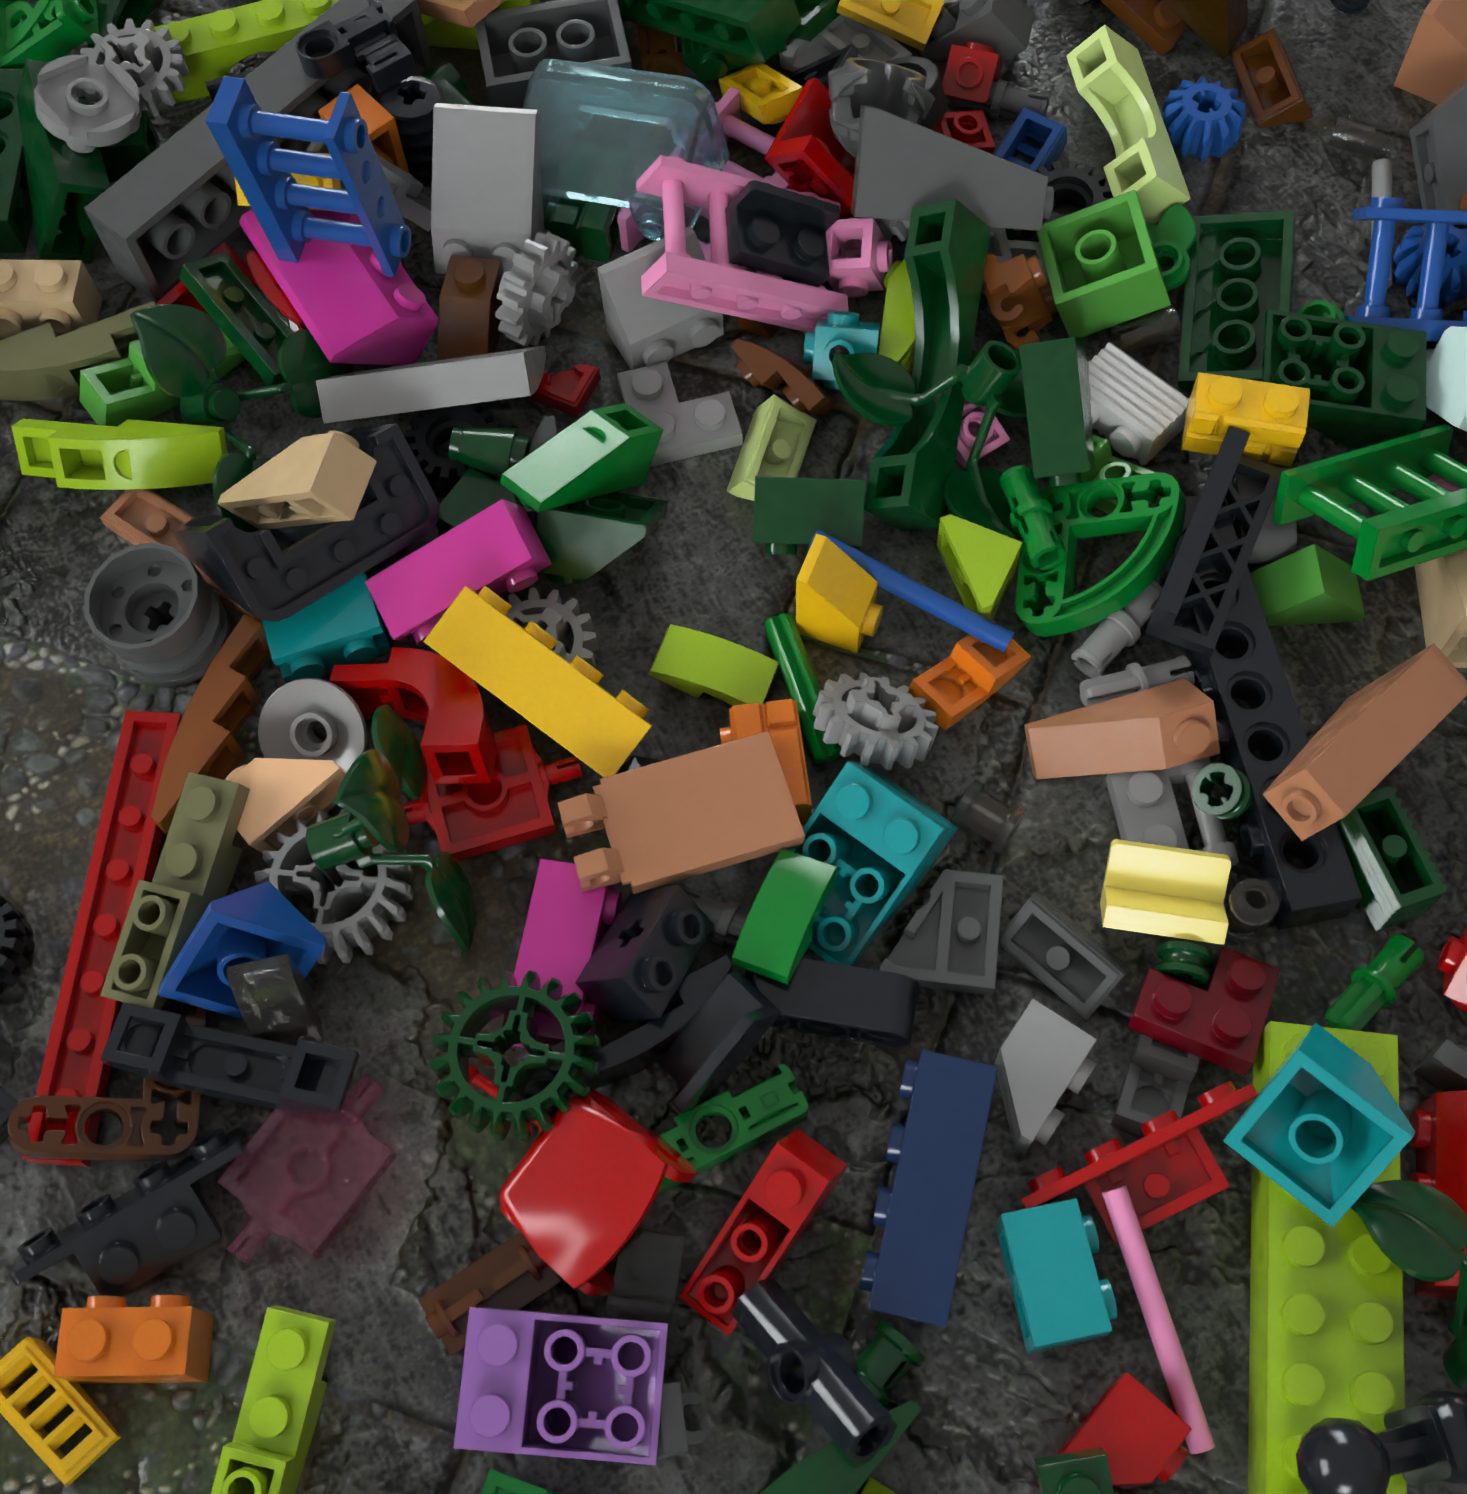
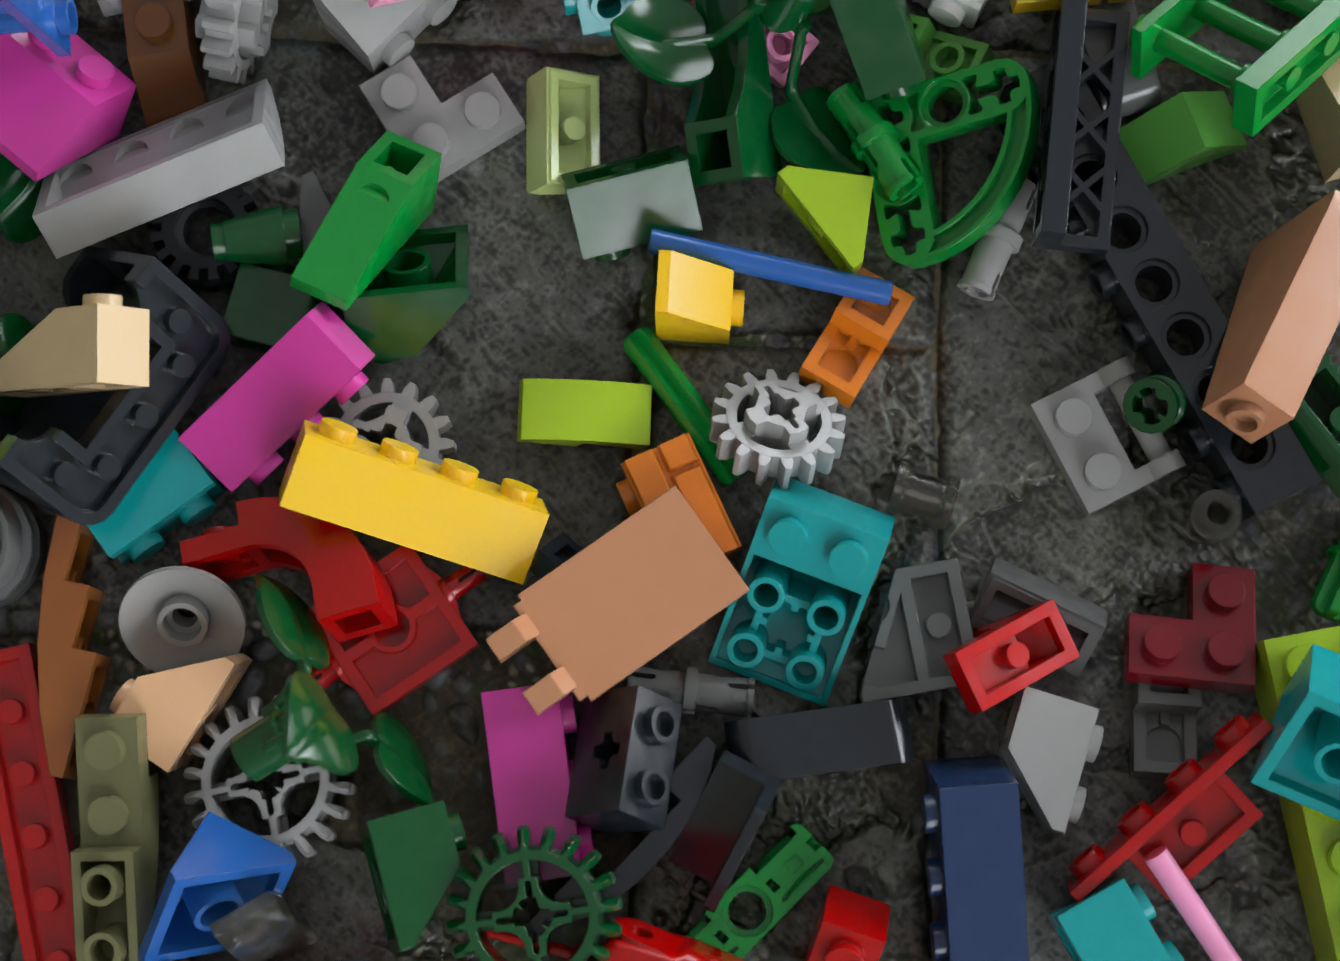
camera: 20 degrees left, 15 degrees up
(426, 974) = (411, 866): none -> dark green slope
(568, 389) = (310, 116): red tile -> none
(774, 370) = (528, 30): reddish brown slope -> none
(783, 916) = (753, 678): green slope -> none
(1027, 968) = (1010, 655): none -> red slope
(1126, 734) = (1043, 362): nougat slope -> none
(1133, 680) = (1033, 299): light grey axle -> none
(1165, 891) = (1123, 527): light yellow panel -> none
(1185, 962) = (1160, 595): dark green bush -> none

